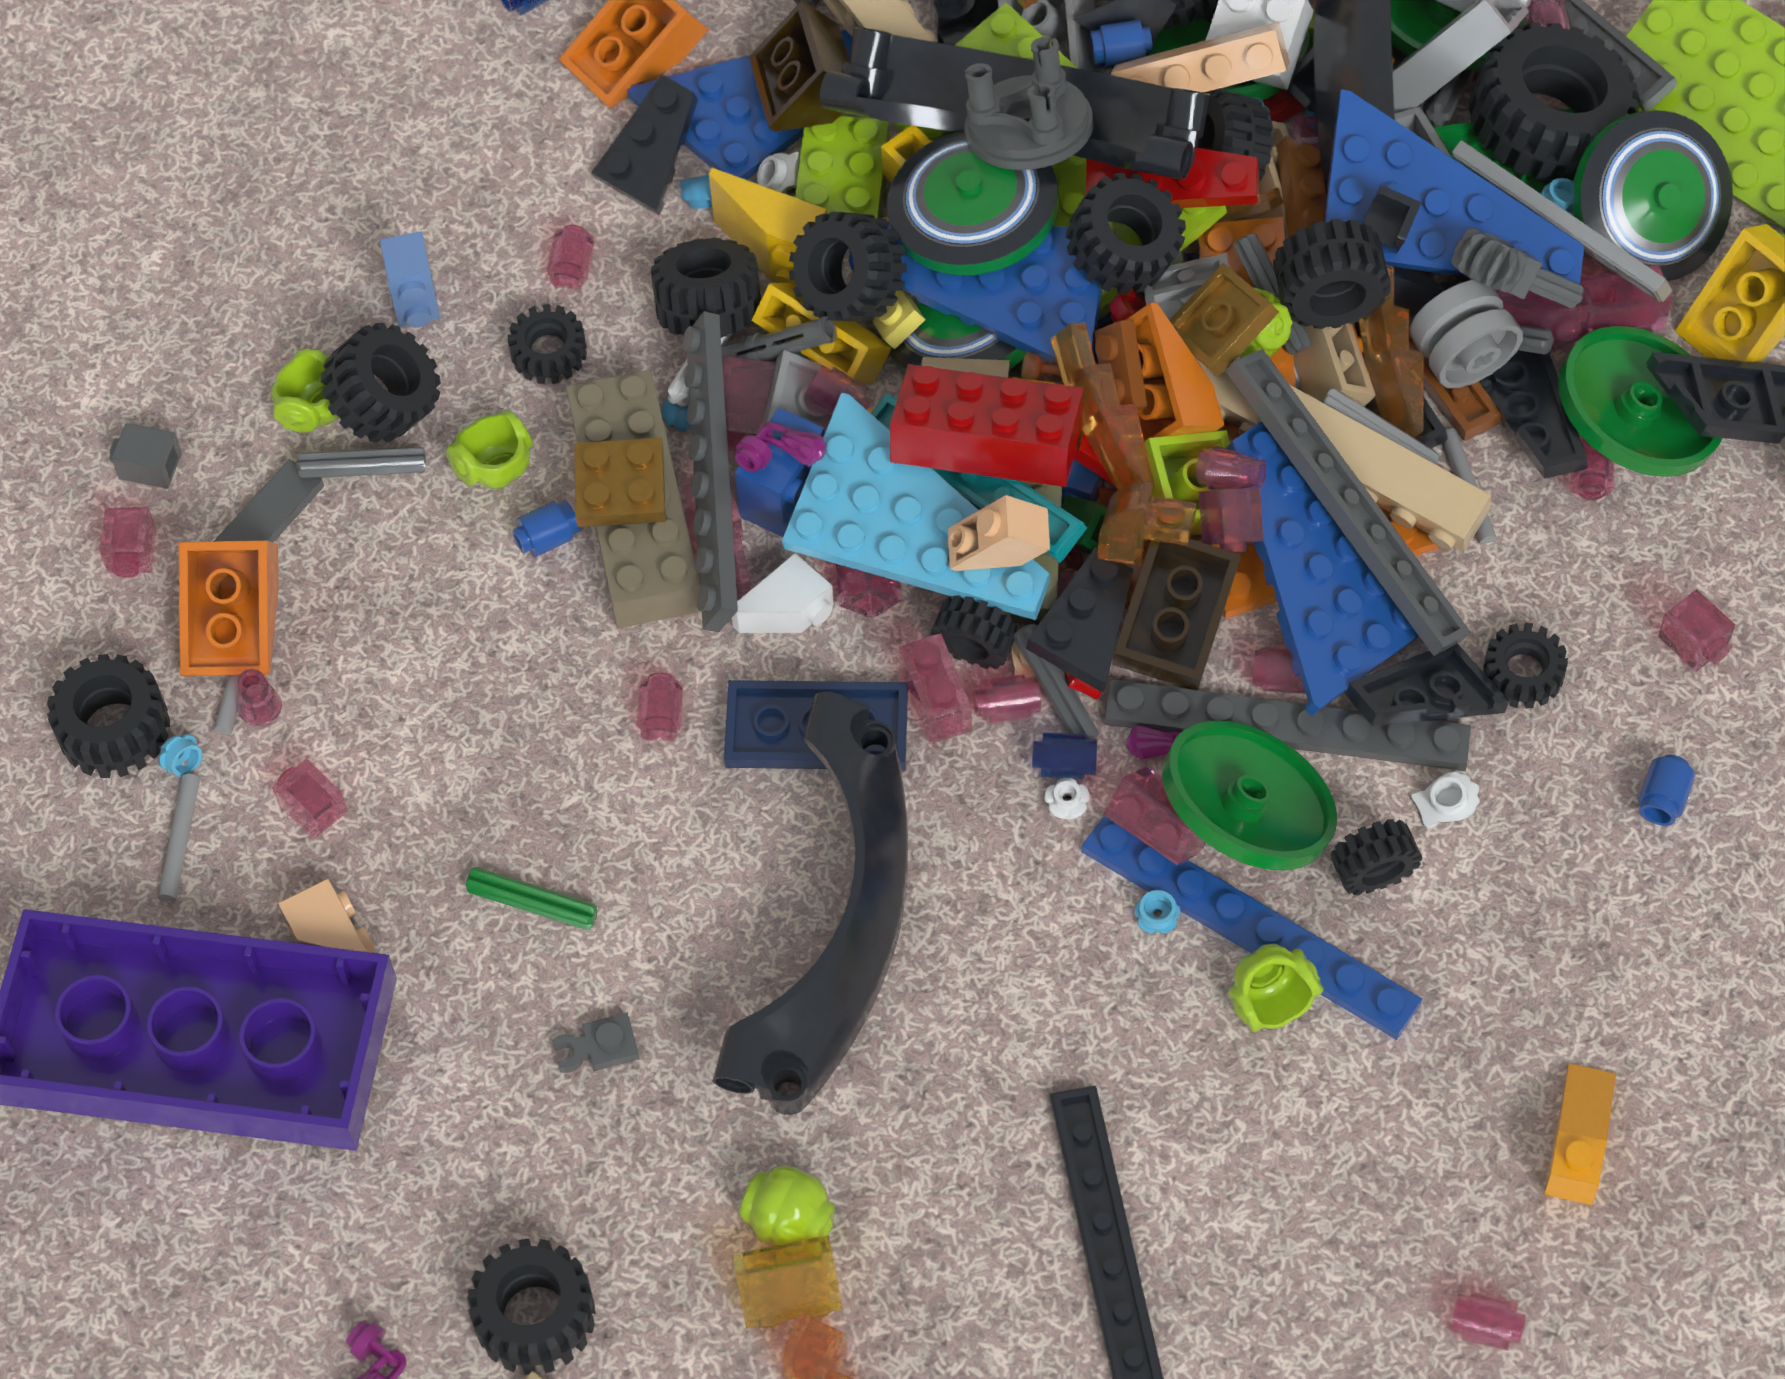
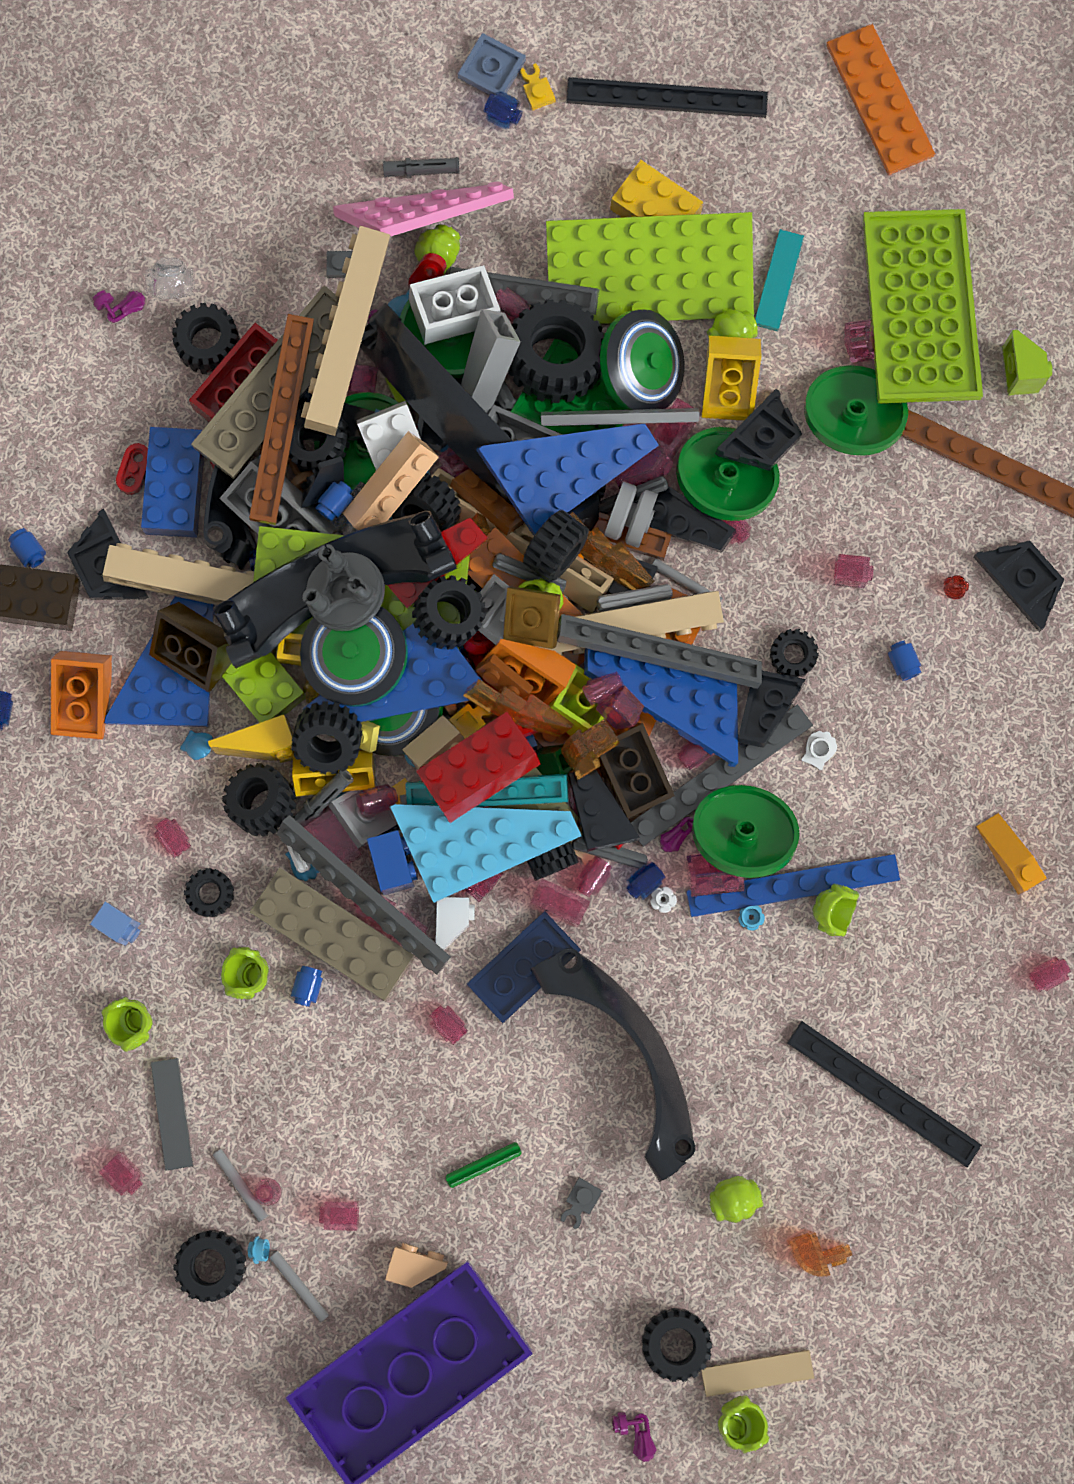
camera: 50 degrees left, 20 degrees up
(145, 455) = (82, 1125): dark grey brick -> none
(227, 606) = (208, 1164): orange slope -> none
(361, 462) = (187, 1033): dark grey axle -> none
(362, 400) = (148, 1003): black tyre -> none
(619, 482) = (329, 940): pearl gold plate -> none
(647, 147) = (148, 746): black wing -> none
(755, 453) = (401, 851): magenta piece -> none
(779, 171) = (226, 704): white animal -> none
(787, 1281) = (768, 1232): clear yellow brick -> none
(999, 536) = (539, 819): light nougat slope -> none
(1376, 857) = (822, 809): black tyre -> none
(1391, 217) = (559, 496): black panel -> none
(1511, 269) = (628, 471): dark grey gear -> none
(1561, 193) = (601, 399): medium azure plate -> none

